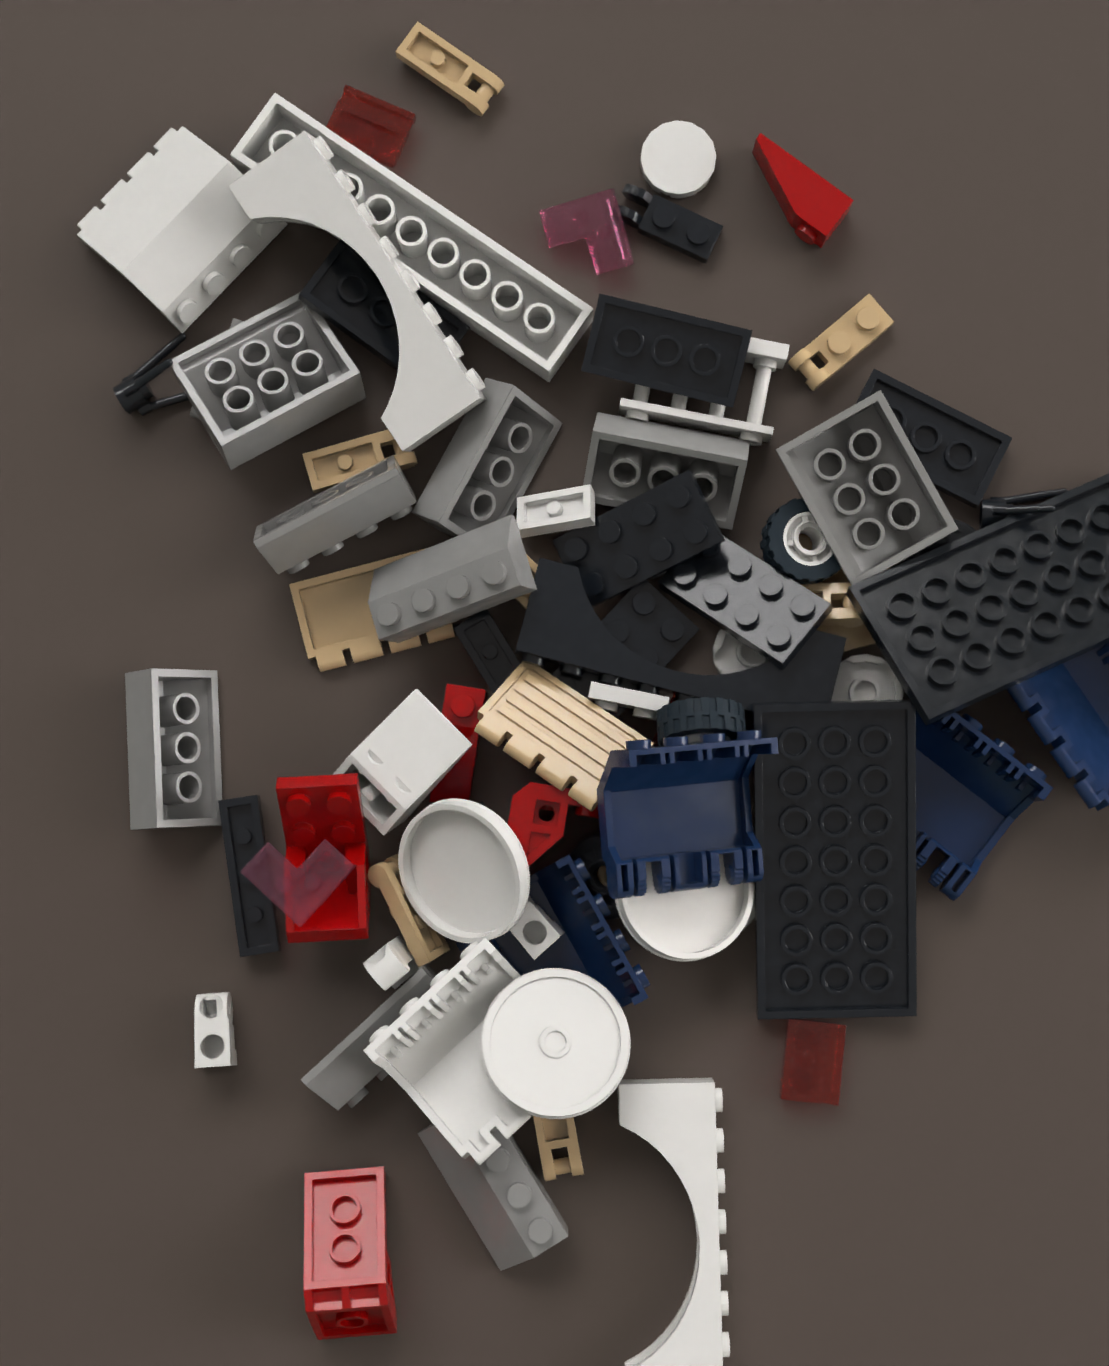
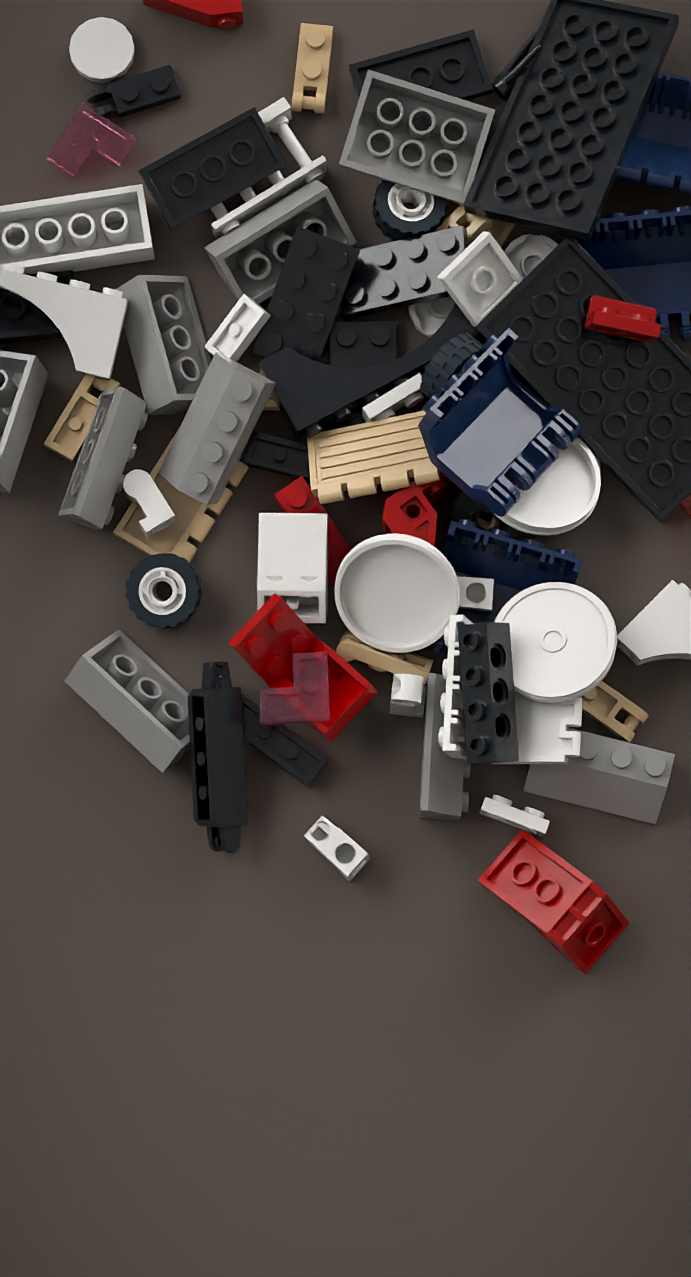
camera: 45 degrees left, 5 degrees down
(185, 862) = (218, 757): none -> black hinge
(258, 680) = (143, 596): none -> black wheel
(340, 588) = (143, 491): none -> white leg
(394, 1164) = (528, 820): none -> white plate
(451, 1037) = (488, 693): none -> black brick
(799, 666) = (480, 278): none -> white tile
(889, 819) = (622, 319): none -> red bracket

